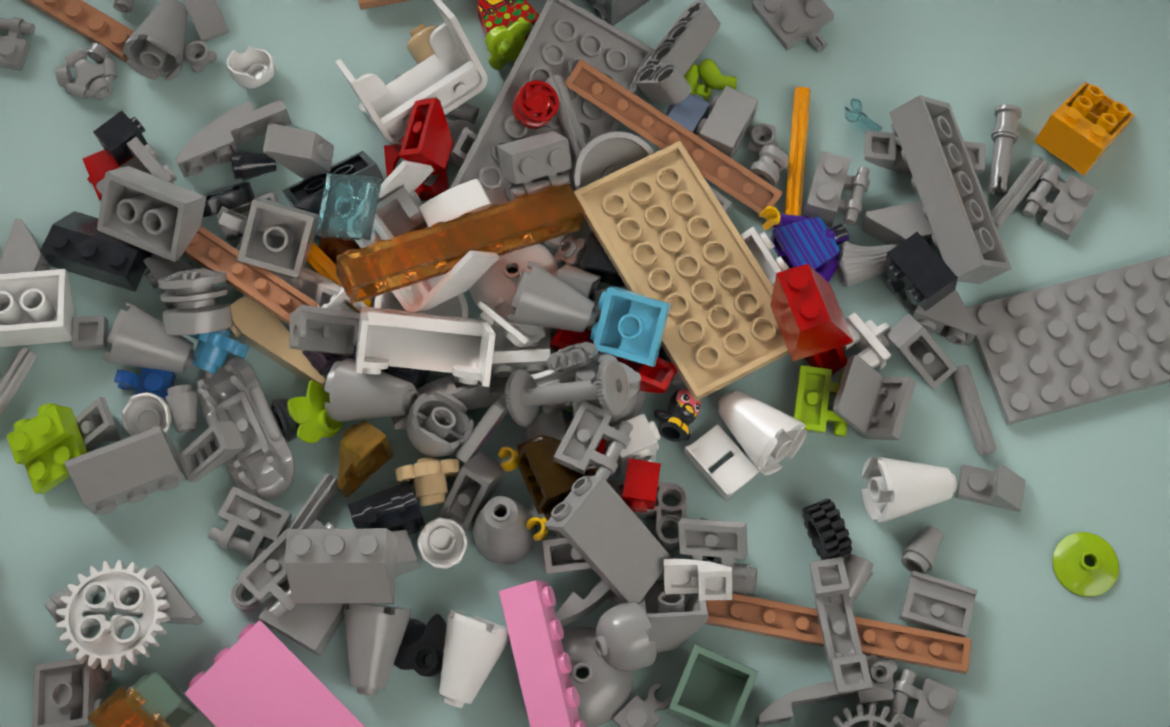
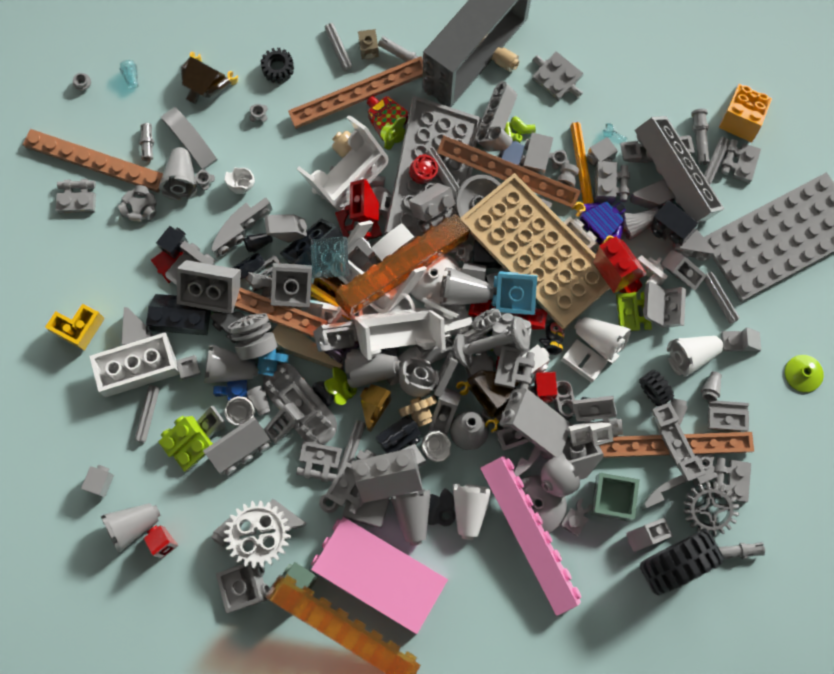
camera: 15 degrees left, 5 degrees up
(833, 138) = (602, 151): none -> light grey brick

